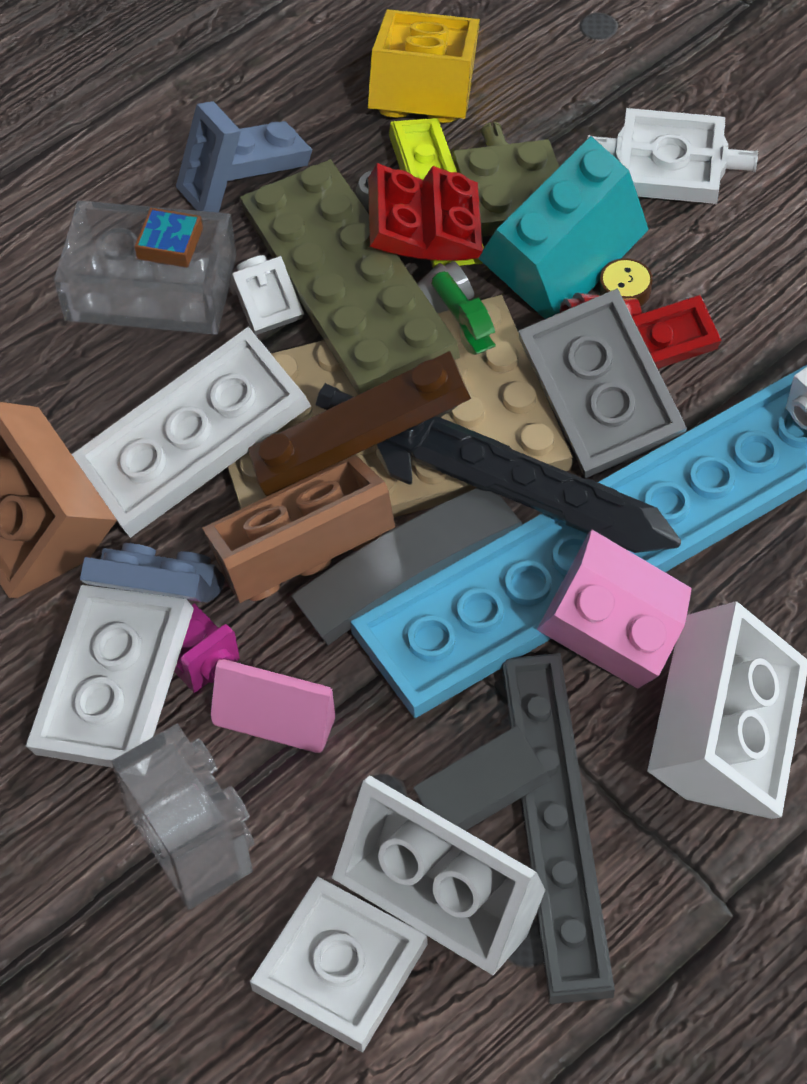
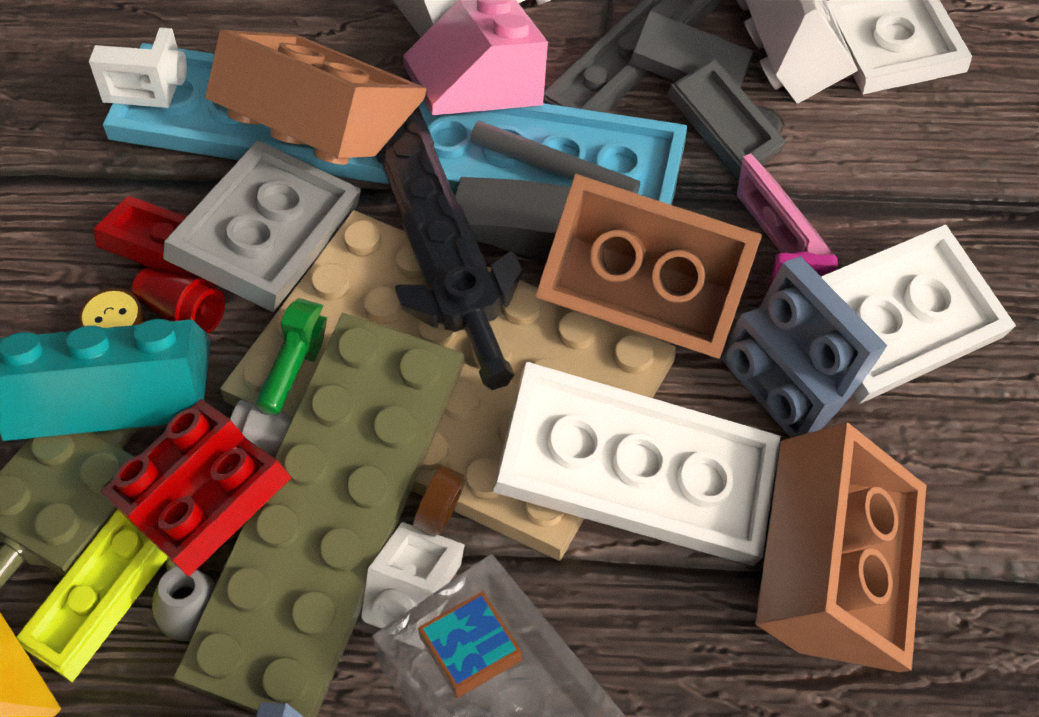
camera: 135 degrees left, 0 degrees up
(185, 814) = (938, 152): clear brick -> none
(288, 326) = (439, 501): none -> reddish brown tile
(358, 423) = (508, 300): reddish brown plate -> none
(396, 749) = (725, 116): none -> dark grey tile
(468, 582) = (546, 157): none -> dark grey bar
(681, 466) = (309, 93): none -> nougat slope

